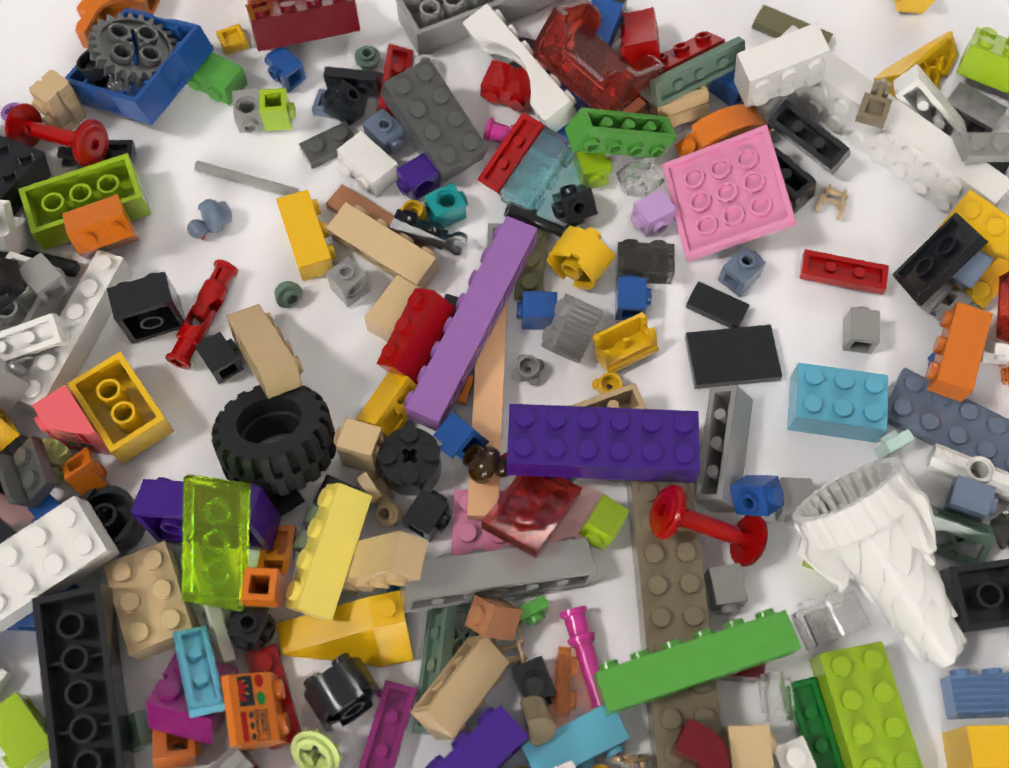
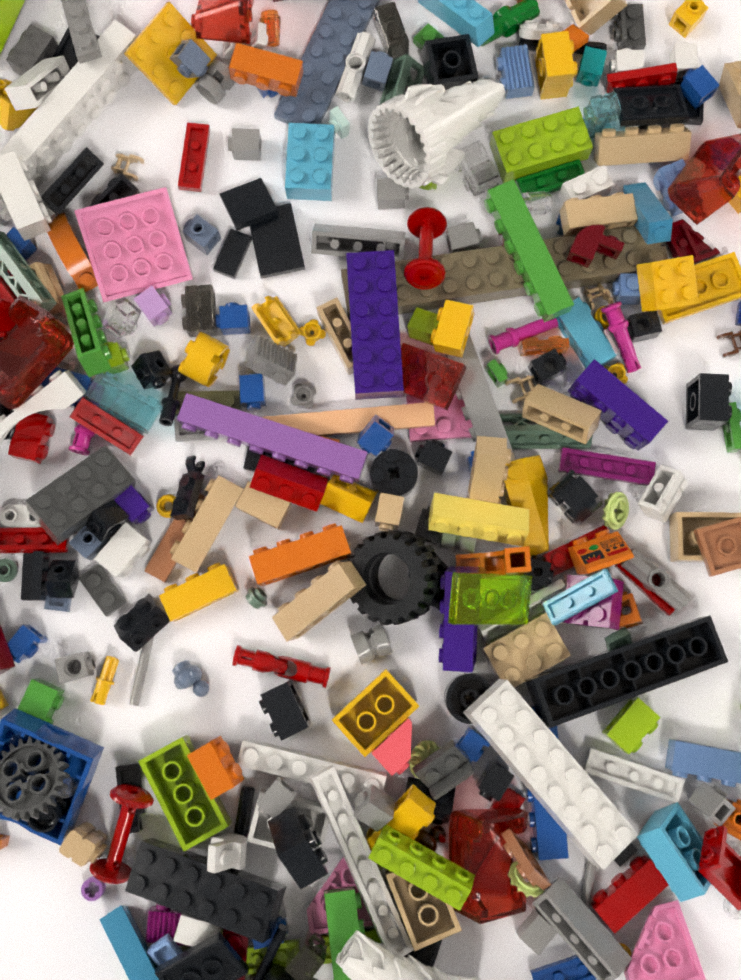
camera: 95 degrees left, 15 degrees up
(84, 473) = (435, 726): orange brick -> none
(202, 407) = (371, 644): none -> light grey wheel
(220, 356) = (318, 643): black brick -> none
(228, 138) = (105, 680): none -> yellow axle
(276, 109) = (74, 639): lime brick -> none
(281, 173) = (141, 623): none -> black bracket
(326, 339) = (299, 556): none -> orange brick
(348, 281) = (240, 548): light grey brick -> none
(388, 513) = (421, 495): tan plate -> none
(400, 142) = (106, 520): none -> black brick
(446, 195) = (168, 484): teal brick -> none
(484, 463) = (395, 413): dark brown animal -> none
(493, 617) = (510, 395): nougat brick -> none
(537, 720) = (576, 358): dark tan brick -> none
(591, 545) = (453, 328): none -> yellow brick
(757, 495) = (395, 215): blue brick -> none
(780, 326) = (248, 204): none -> black tile
(875, 104) = (53, 123): dark tan plate -> none
(939, 258) = (186, 80): black tile -> none

